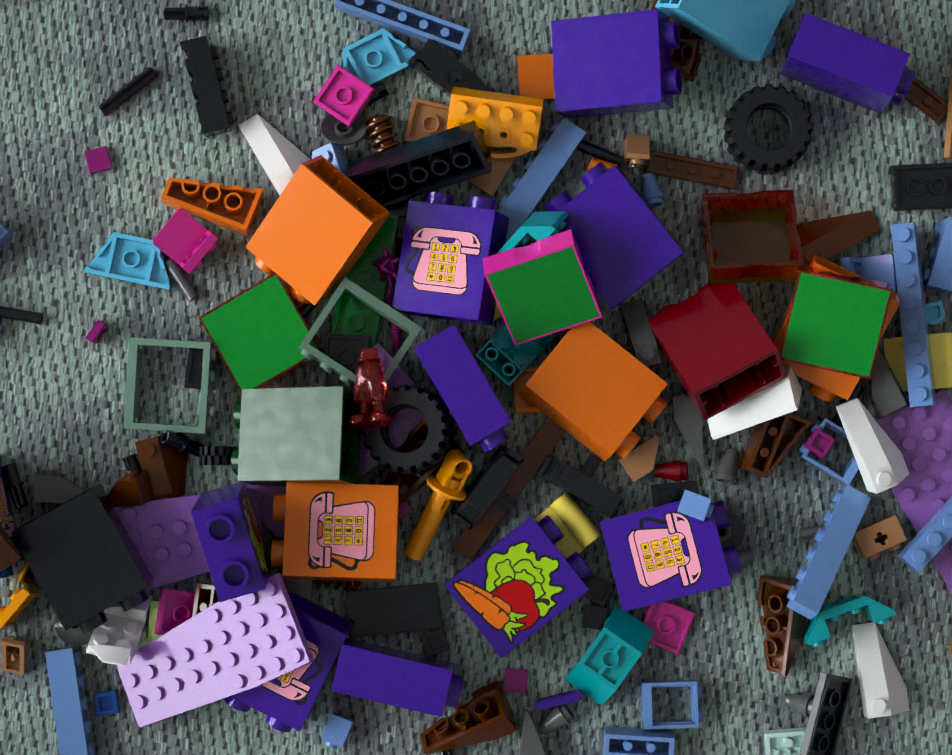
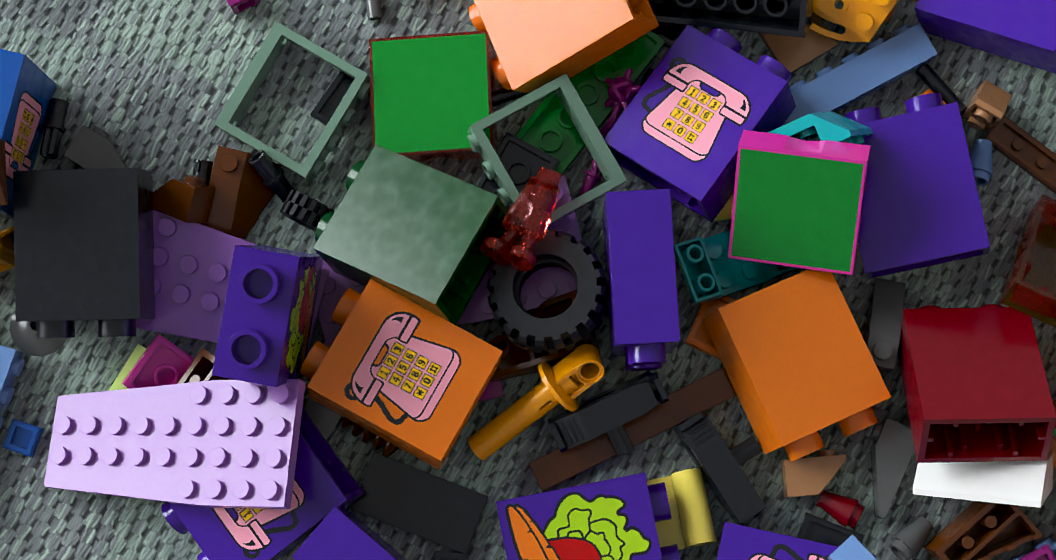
camera: 30 degrees right, 5 degrees down
(120, 635) = (81, 363): white piece -> none

